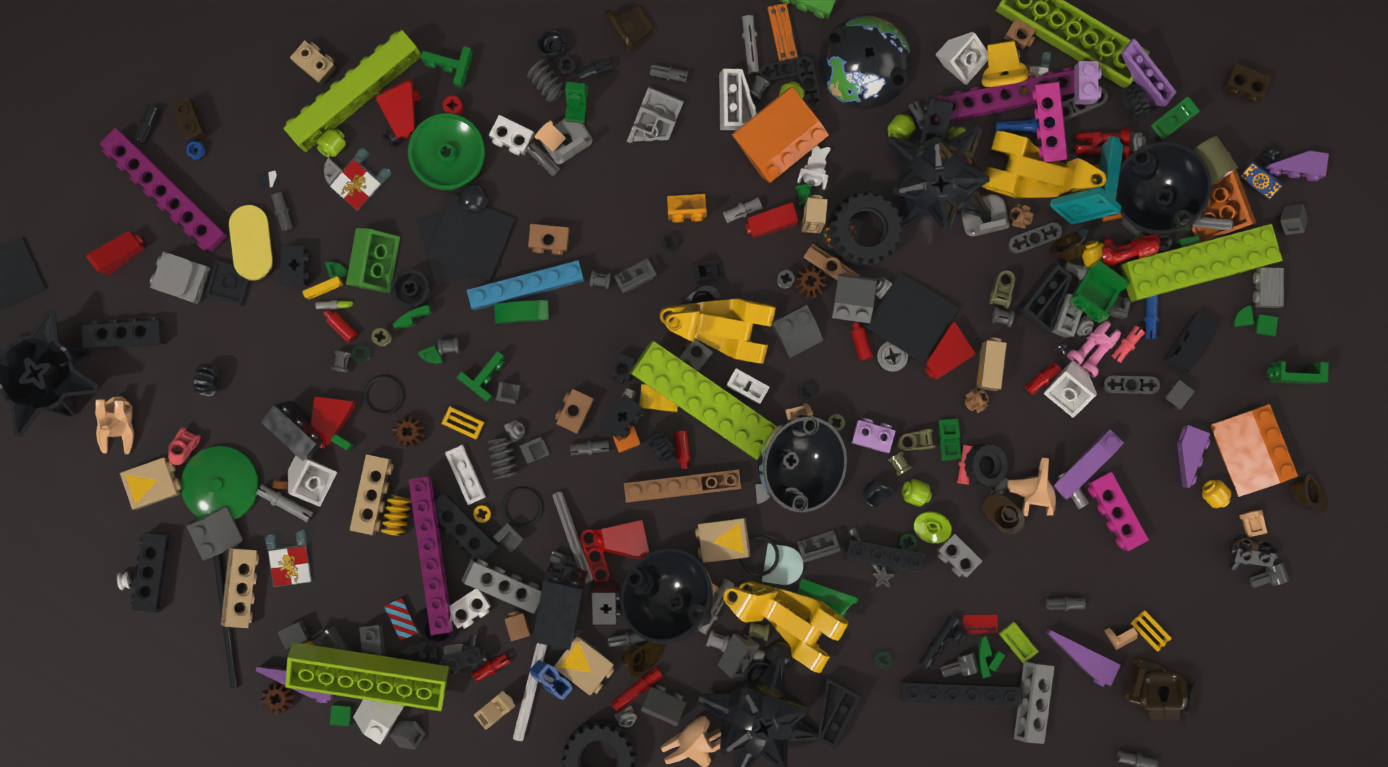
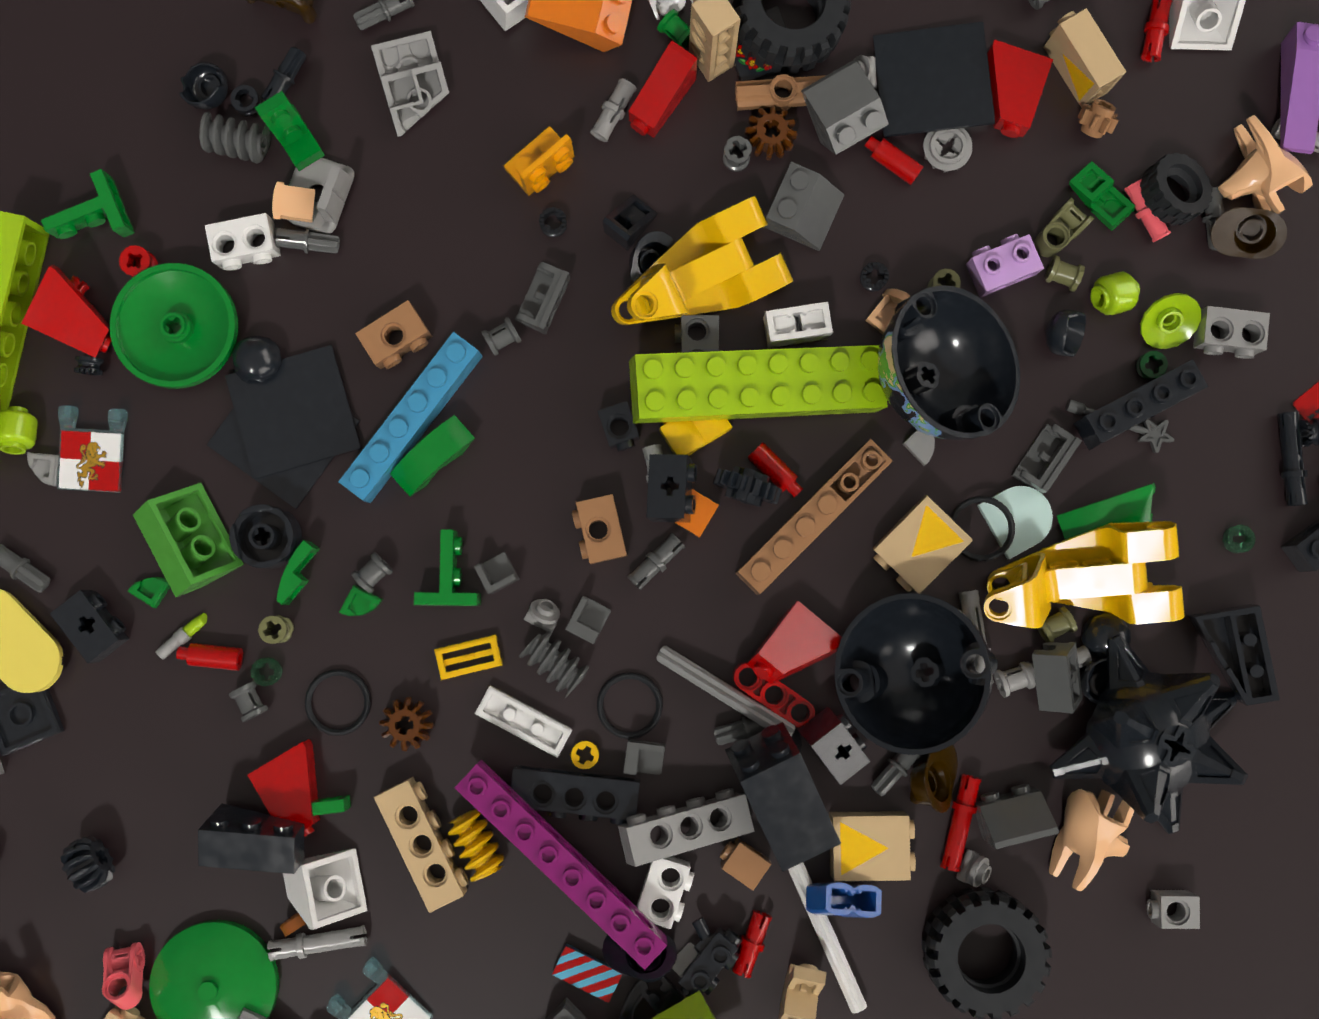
camera: 40 degrees left, 0 degrees up
(323, 288) = (150, 625): yellow tile -> none

